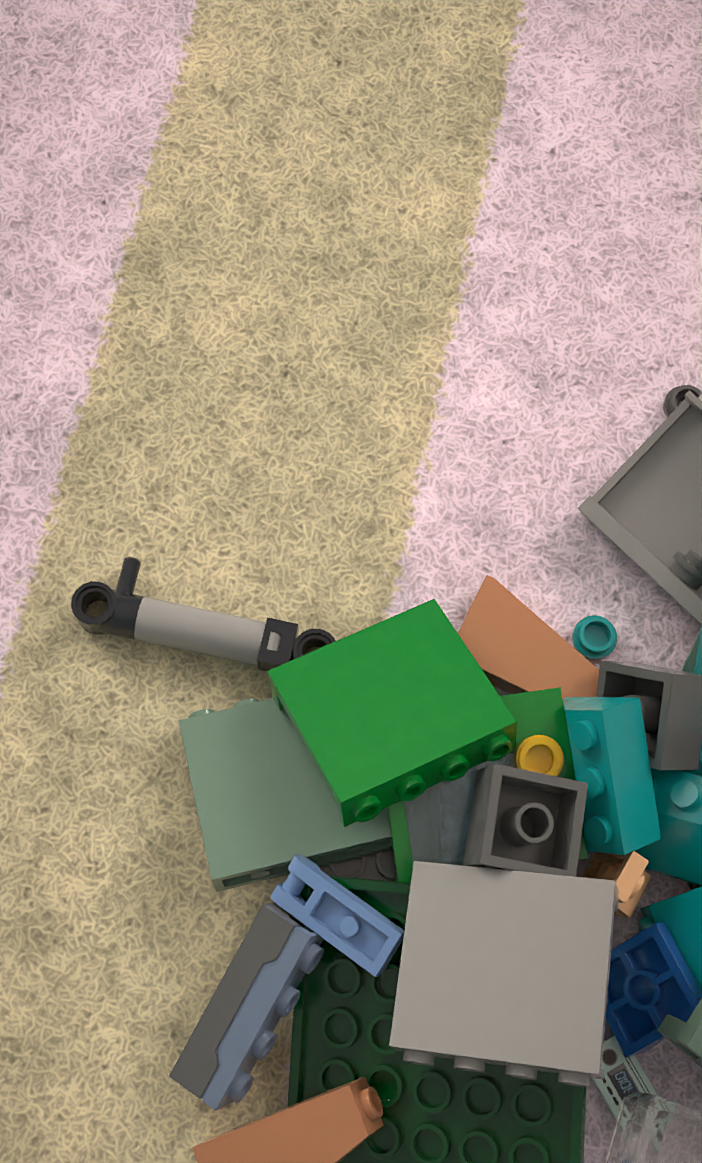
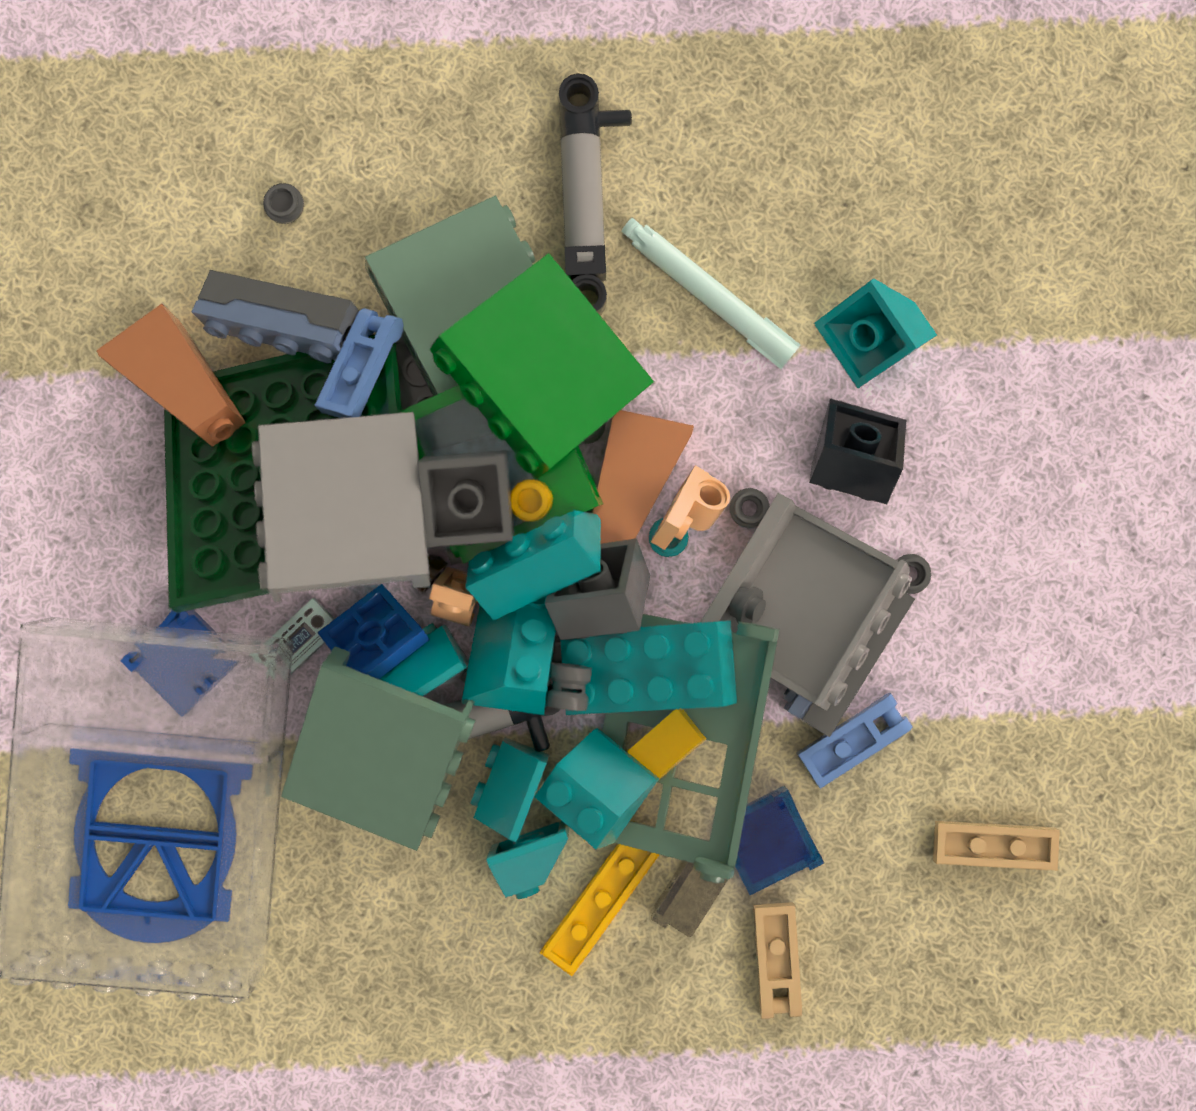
camera: 80 degrees right, 15 degrees up
(110, 971) = (283, 203): none -> dark grey plate
(397, 489) = (759, 331): none -> light aqua piece
(429, 376) = (874, 330): none -> teal slope
(549, 421) = (859, 452): none -> black slope
(569, 599) = (694, 506): none -> light nougat plate
(587, 535) = (737, 501): none -> dark grey plate

